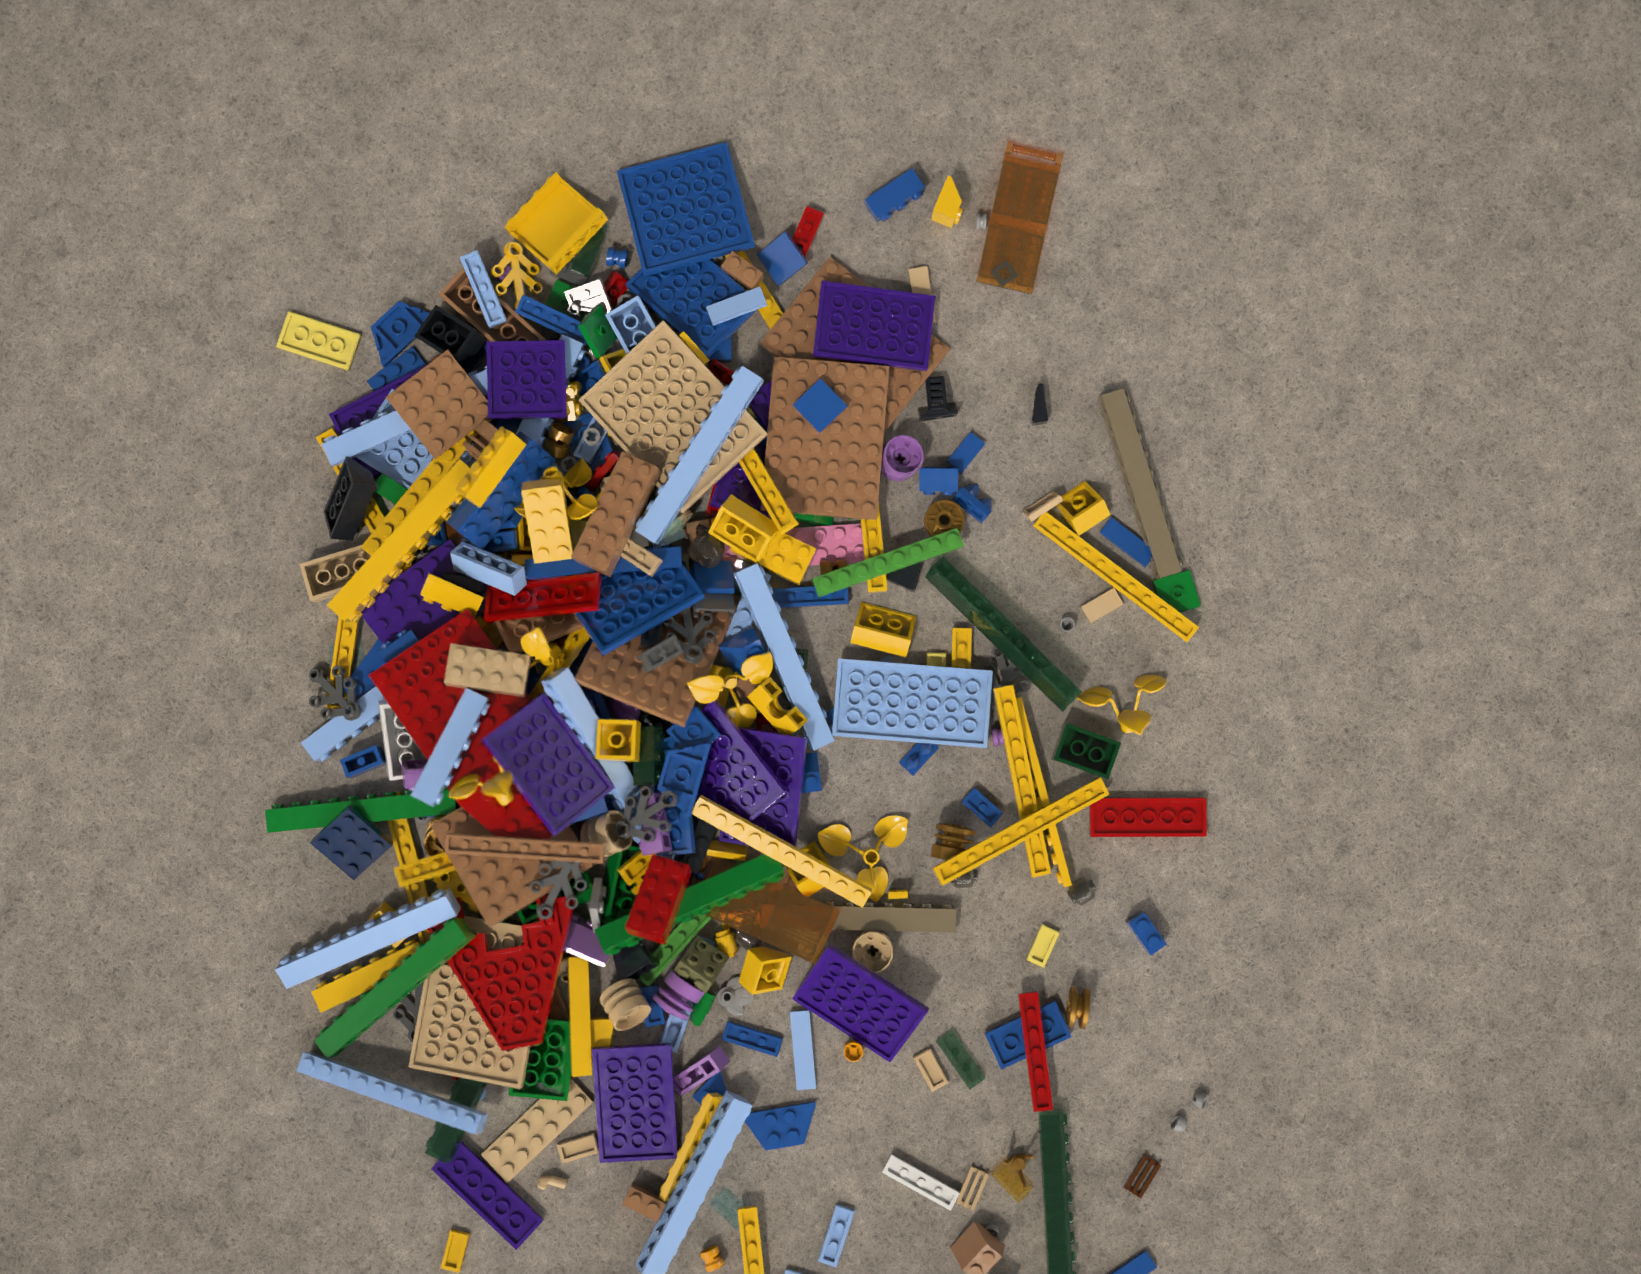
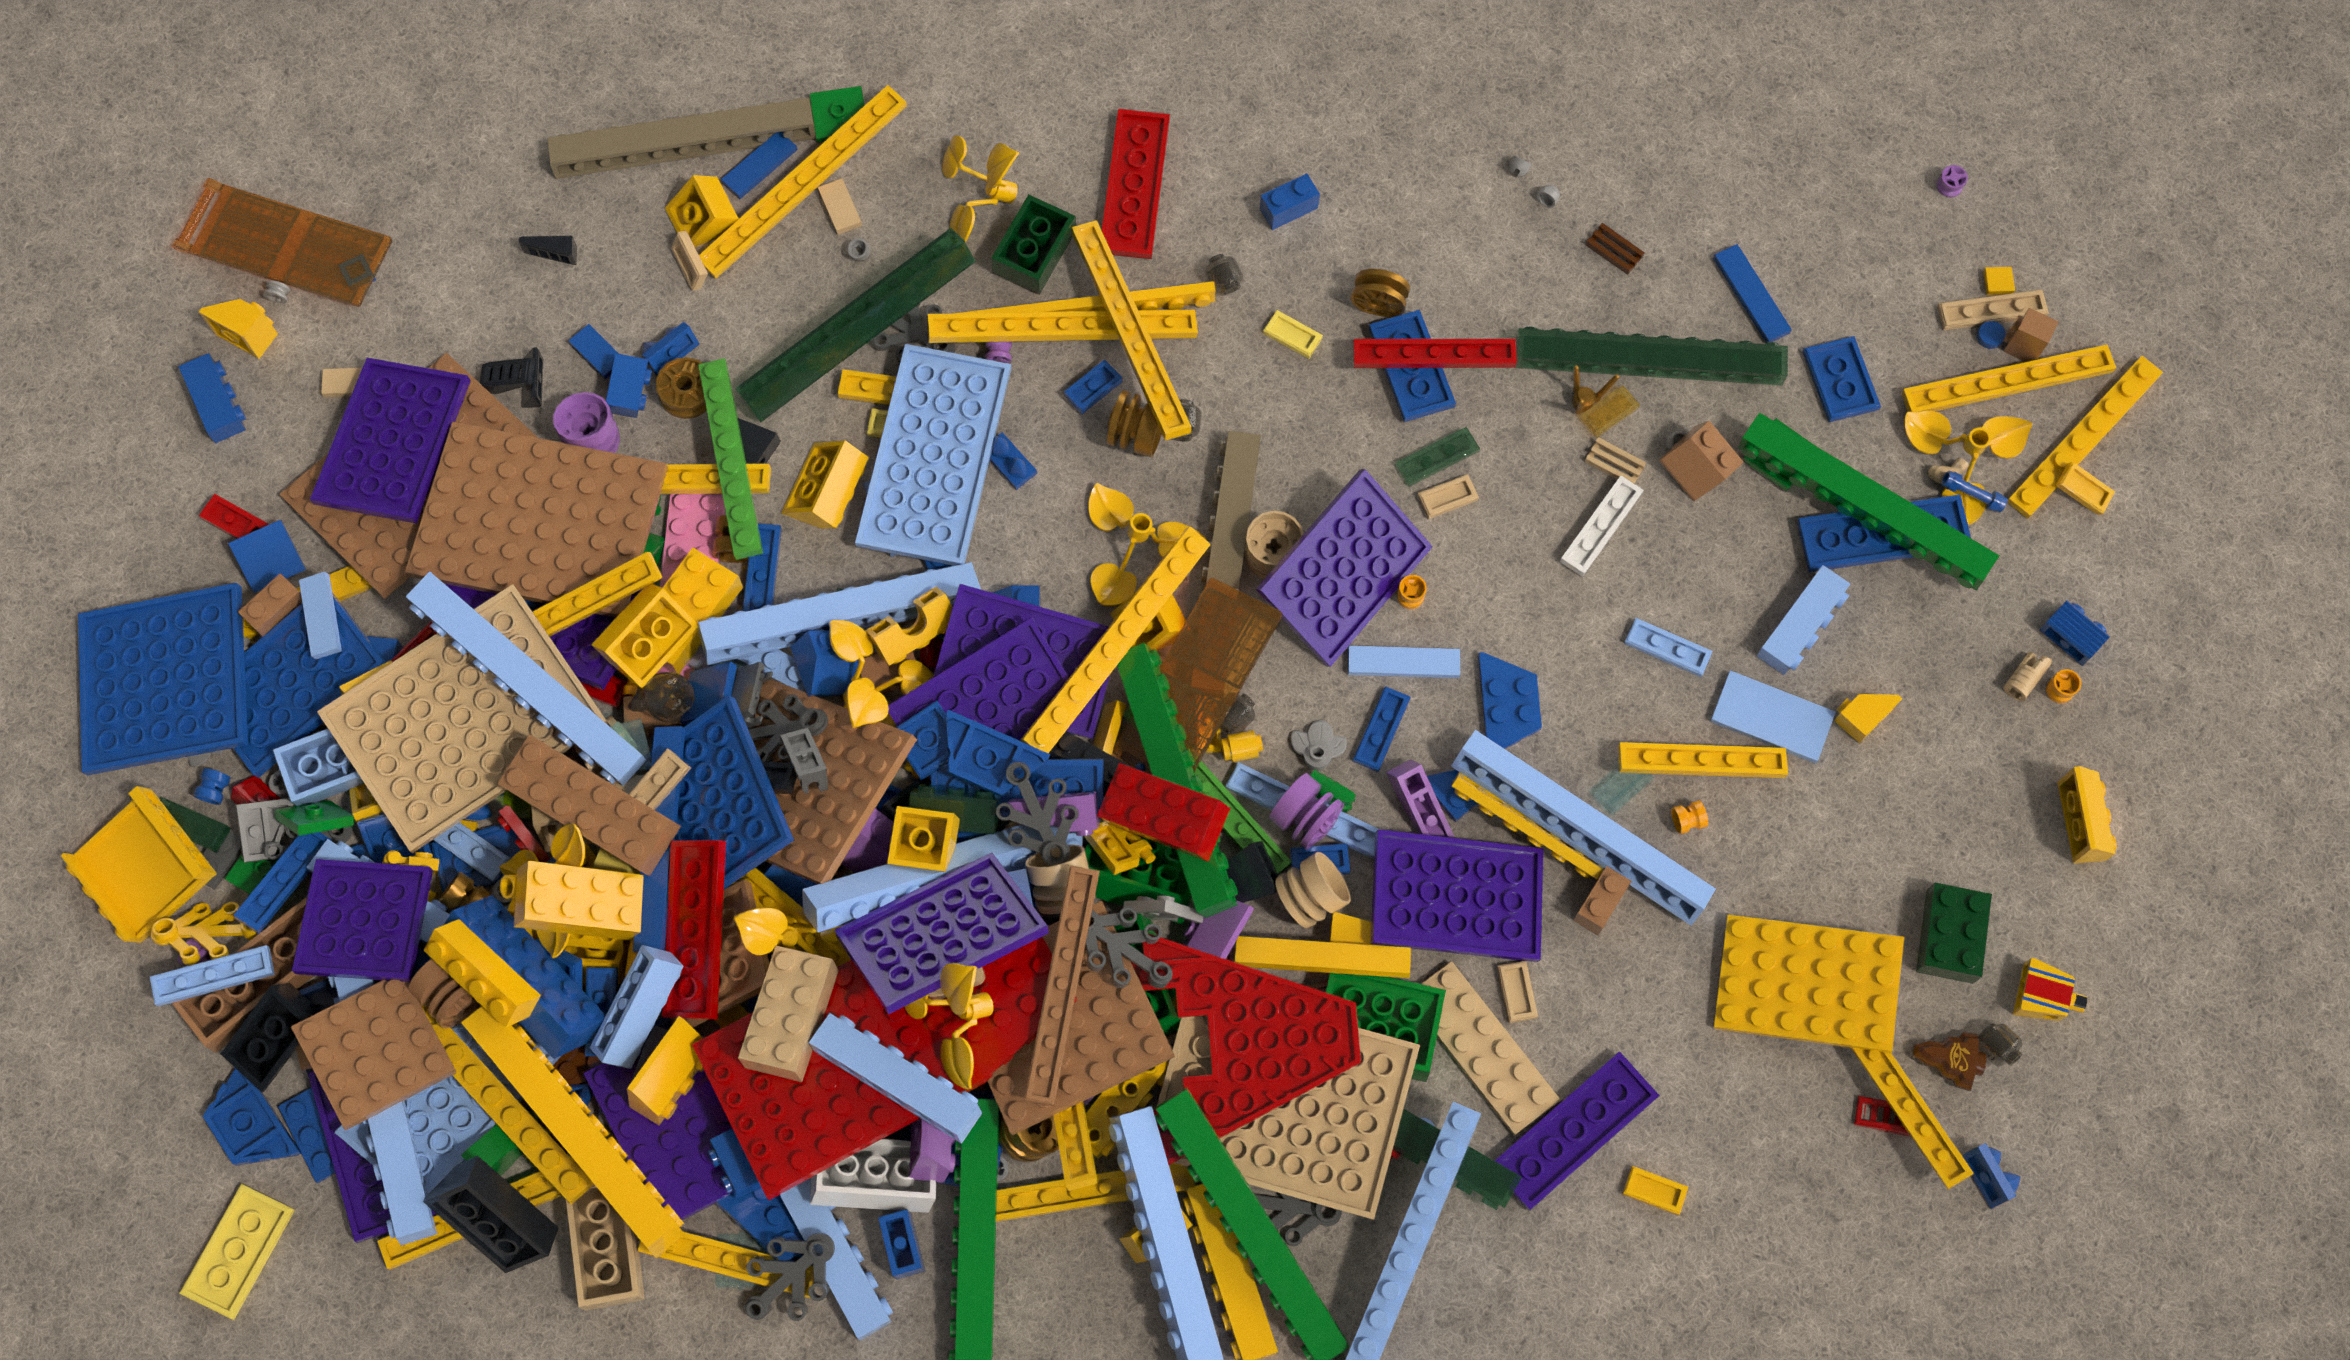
camera: 85 degrees left, 15 degrees down
(351, 842) = (1022, 1273): dark blue plate -> none
(555, 1181) = (1561, 1033): tan arm -> none
(597, 437) = (461, 843): light grey bush -> none
(701, 964) = (1265, 774): olive brick -> none
(764, 970) = (1284, 695): yellow slope -> none
(820, 405) = (488, 514): blue tile -> none
(897, 894) = (1199, 506): yellow tile -> none

